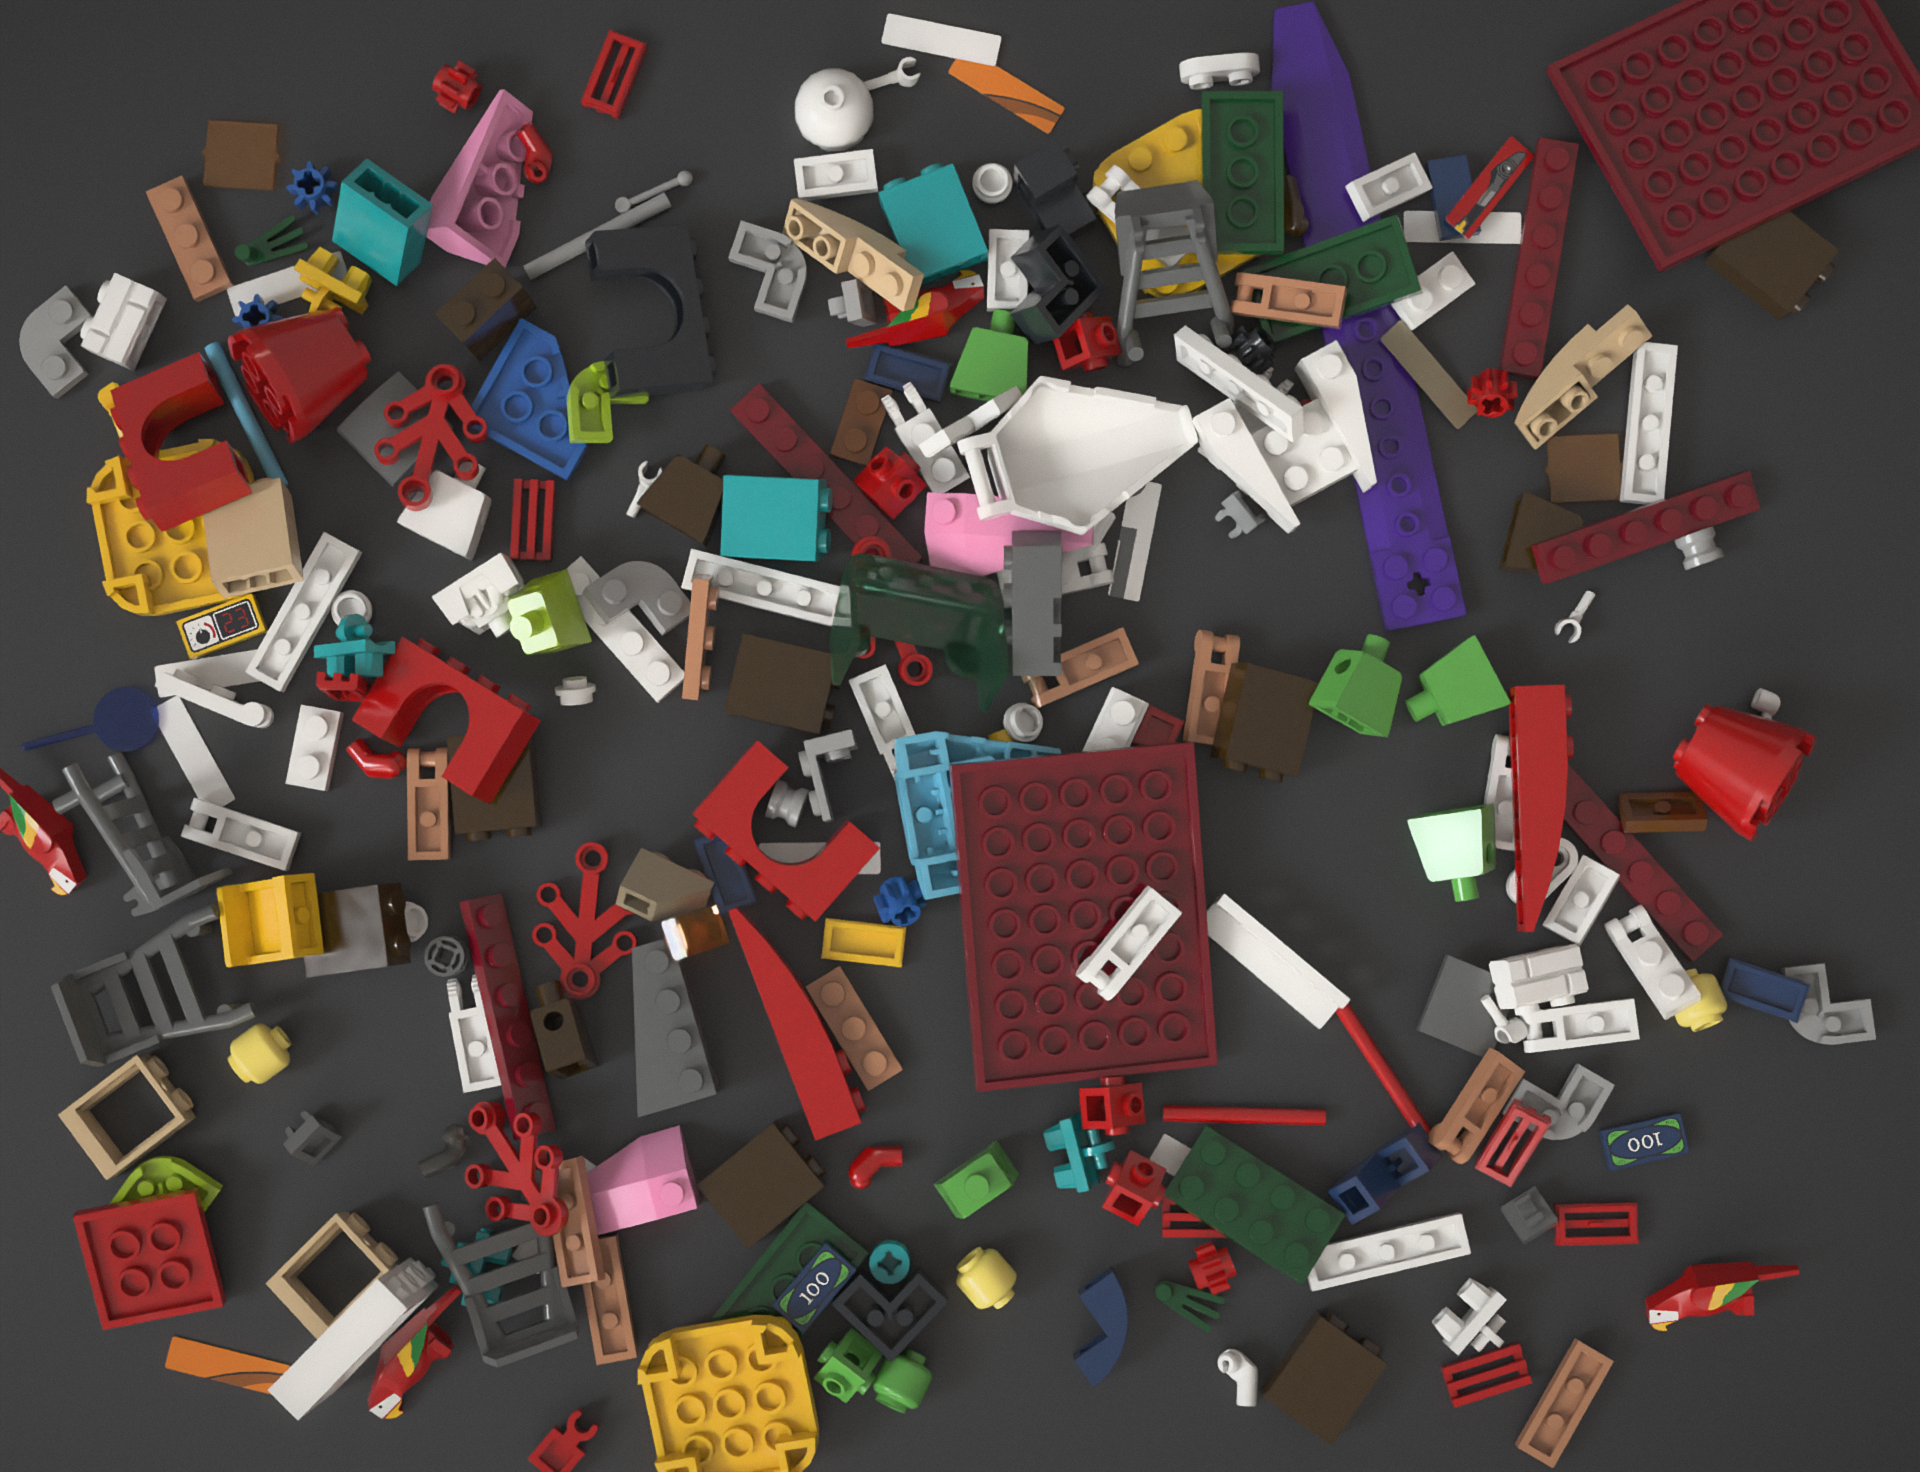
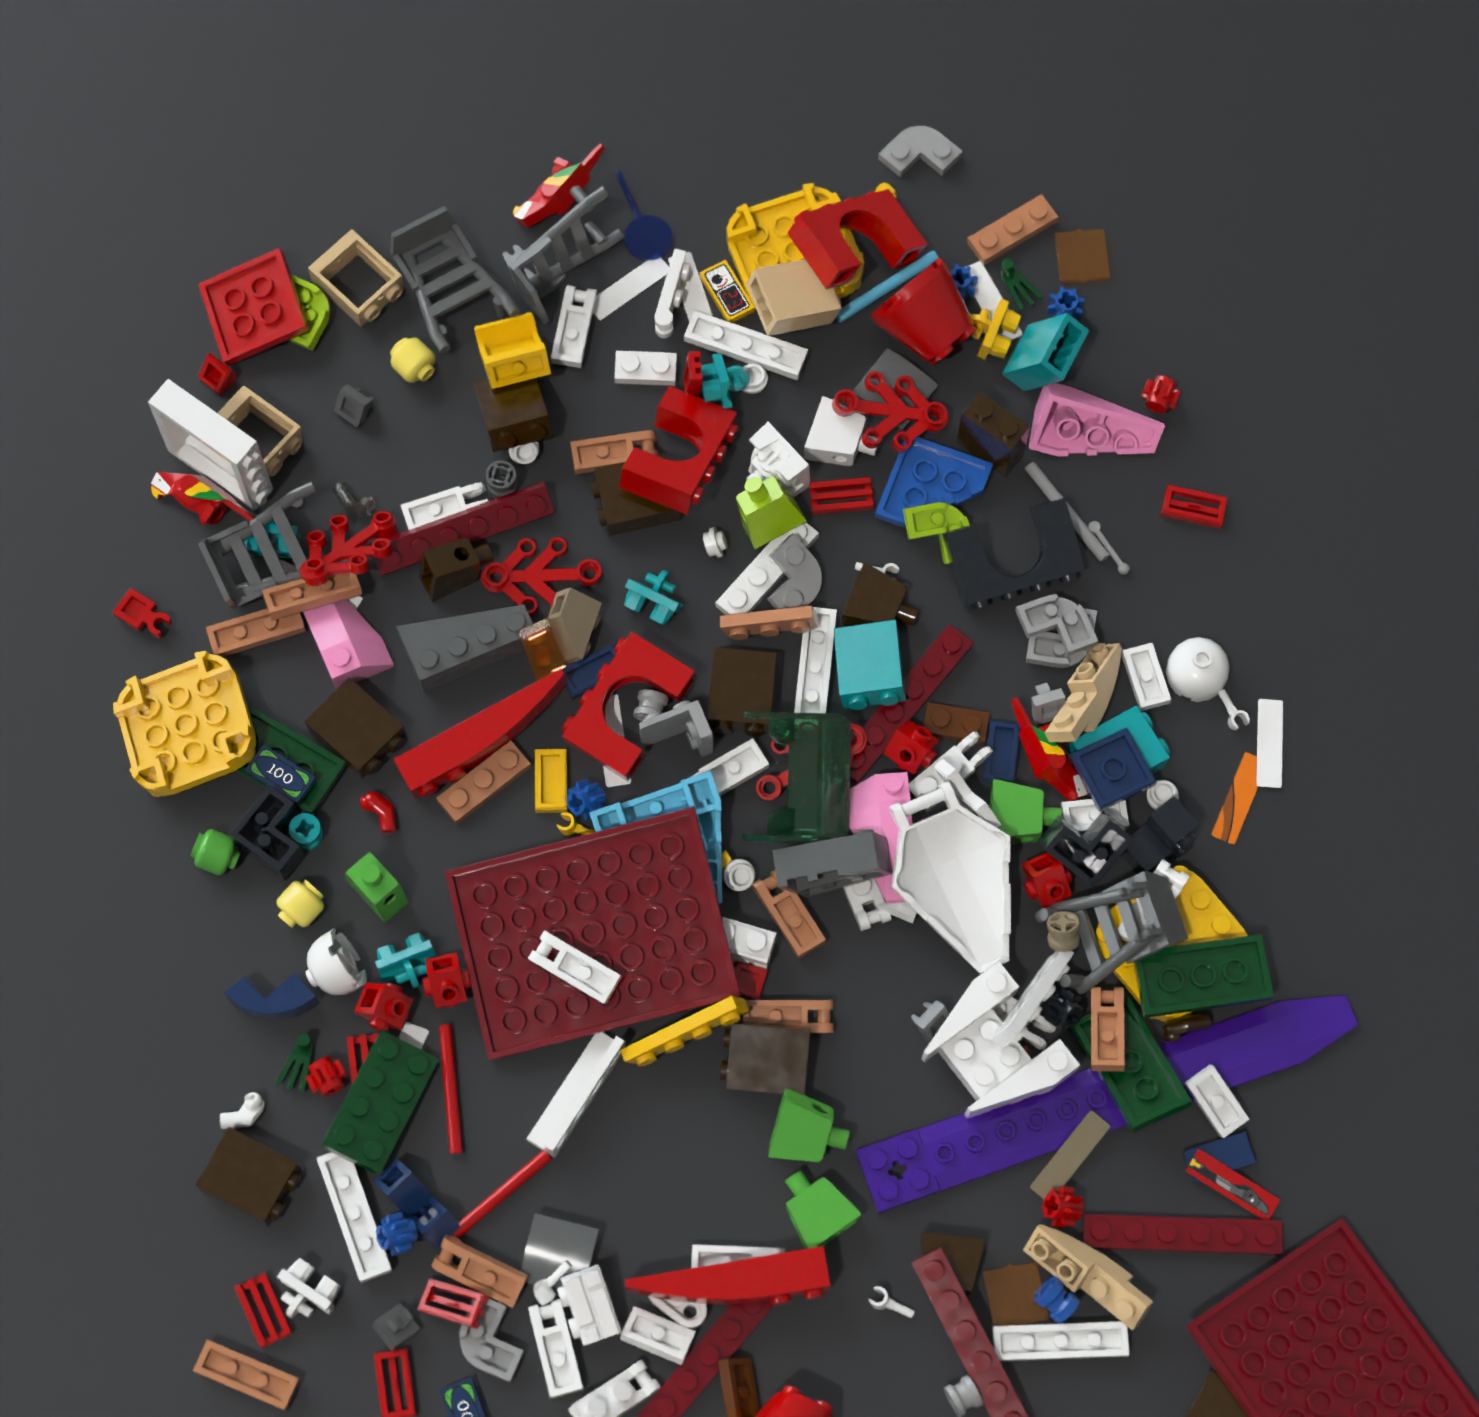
camera: 80 degrees right, 15 degrees down
(122, 321) = (941, 191): white brick -> none
(223, 1365) = (182, 359): orange sticker -> none
(238, 1316) = (216, 374): none -> red slope
(376, 765) = (638, 411): red arm -> none
(538, 154) = (1121, 459): red arm -> none
(629, 794) = (664, 607): none -> teal hips
(743, 263) = (1062, 614): none -> light grey plate
(848, 1366) = (221, 807): bright green brick -> none
(931, 917) = (574, 827): none -> yellow hand
(960, 235) = (1113, 769): none -> dark blue tile
(1073, 1244) = (333, 965): none -> white cylinder
(1135, 542) = (898, 944): white sticker -> none
(1153, 325) = (1063, 931): none -> dark tan wheel
(1222, 800) = (695, 1026): none -> yellow plate
(1235, 68) = (1290, 968): white plate -> none
(1421, 1202) = (396, 1233): none -> blue gear
(1440, 286) = (1139, 1150): white plate -> none
(1456, 846) = (687, 1224): torso -> none
(1496, 228) = (1200, 1195): white sticker -> none
(1606, 416) = (1056, 1300): none -> blue wheel

